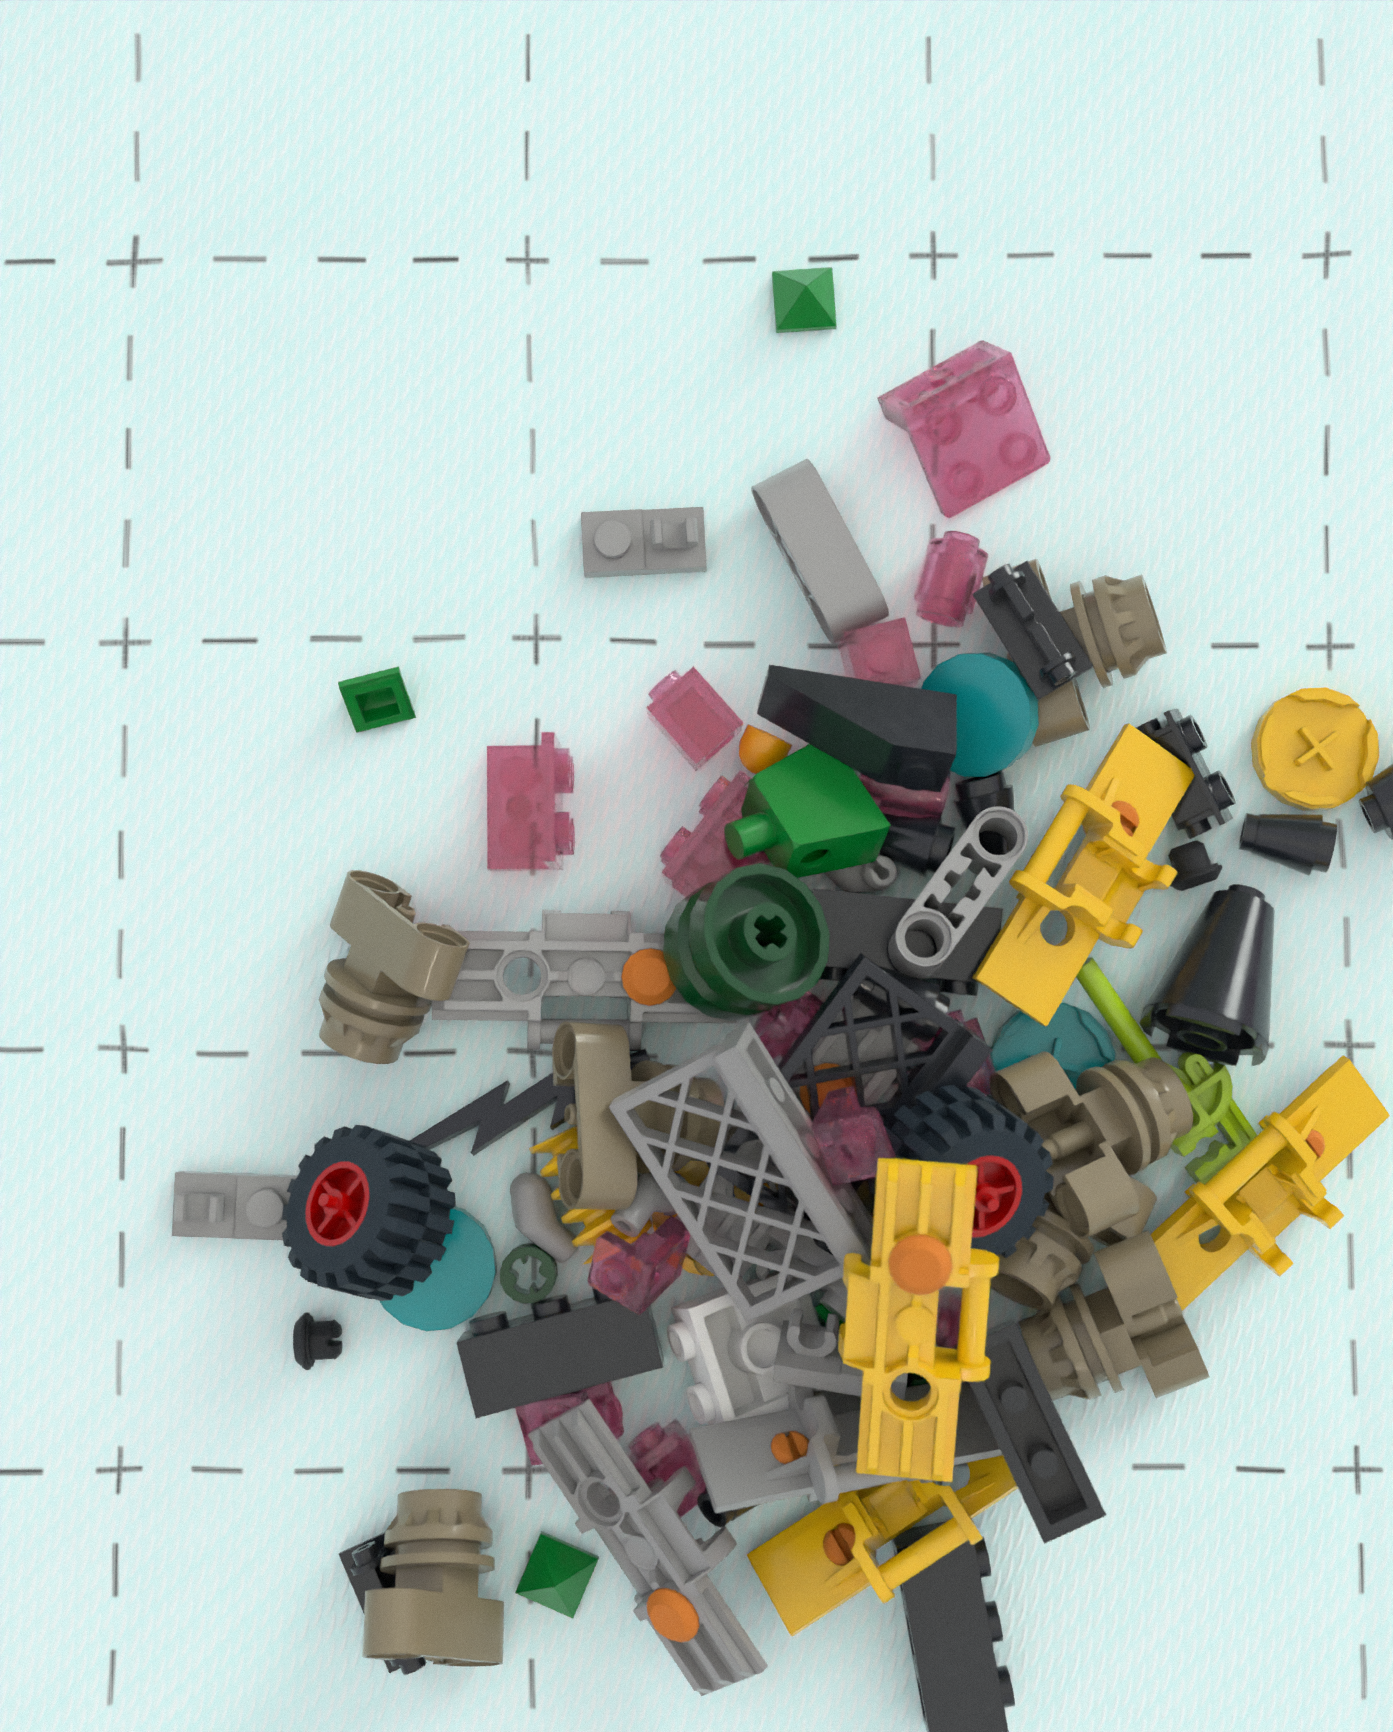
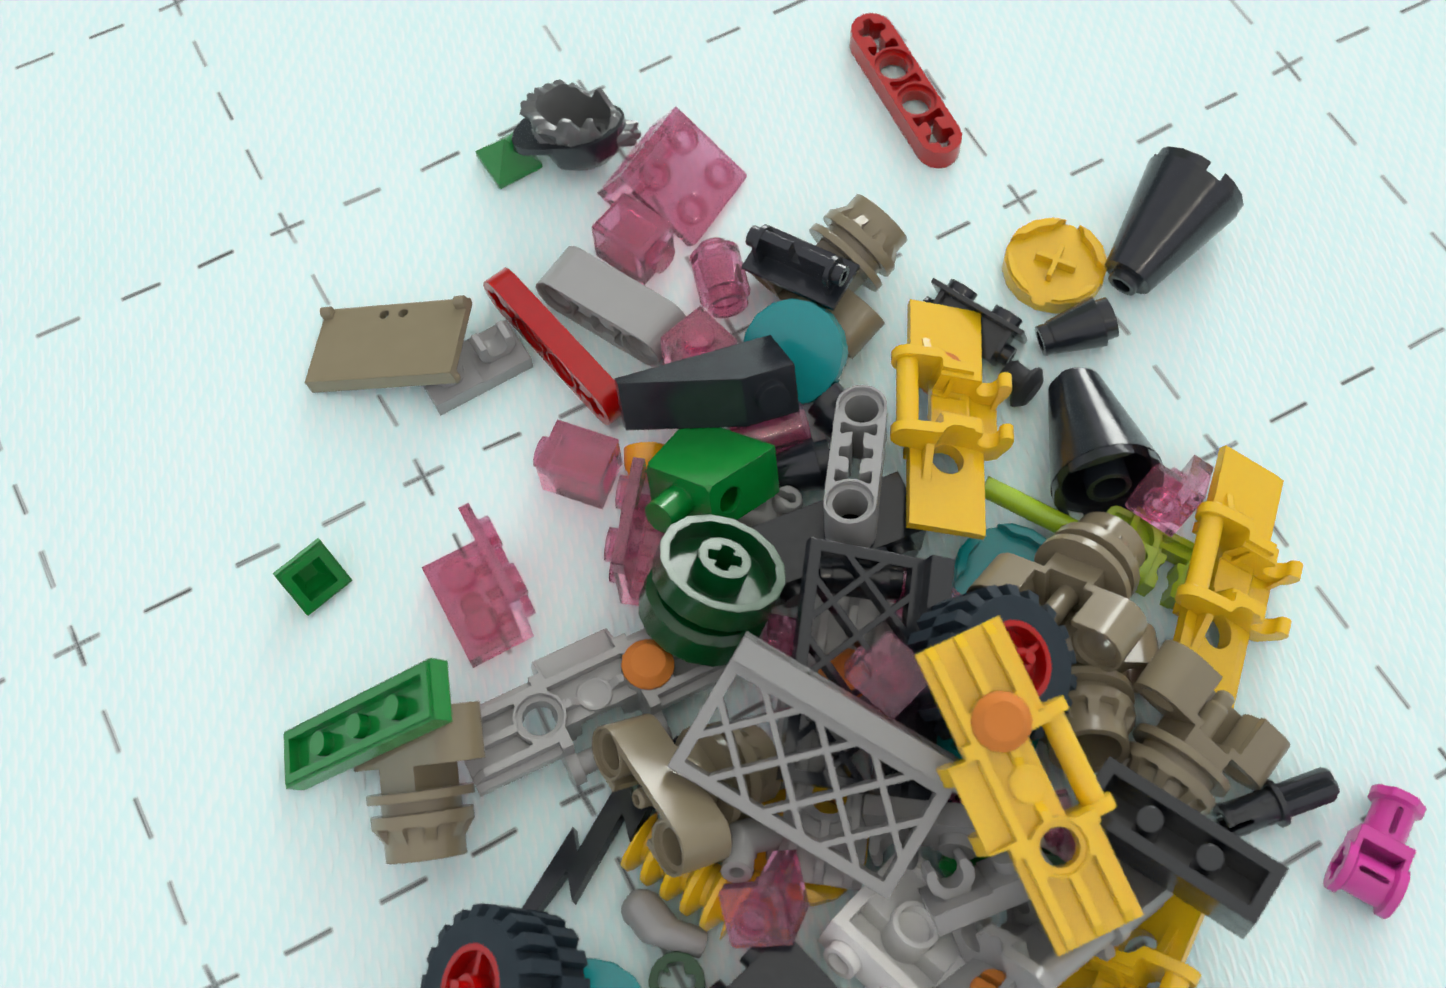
camera: 25 degrees left, 20 degrees down
(358, 904) = (368, 724): none -> green tile
(581, 489) = (389, 345): none -> dark tan door
(737, 565) = (554, 344): none -> red beam
(884, 485) = (634, 239): none -> clear pink brick
(887, 308) = (572, 126): none -> dark grey hair
(1163, 1416) = (1277, 802): none -> black axle
(1224, 1510) = (1374, 855): none -> dark pink connector
(1261, 1085) = (1170, 495): none -> clear pink bracket
(1296, 444) = (911, 86): none -> red beam

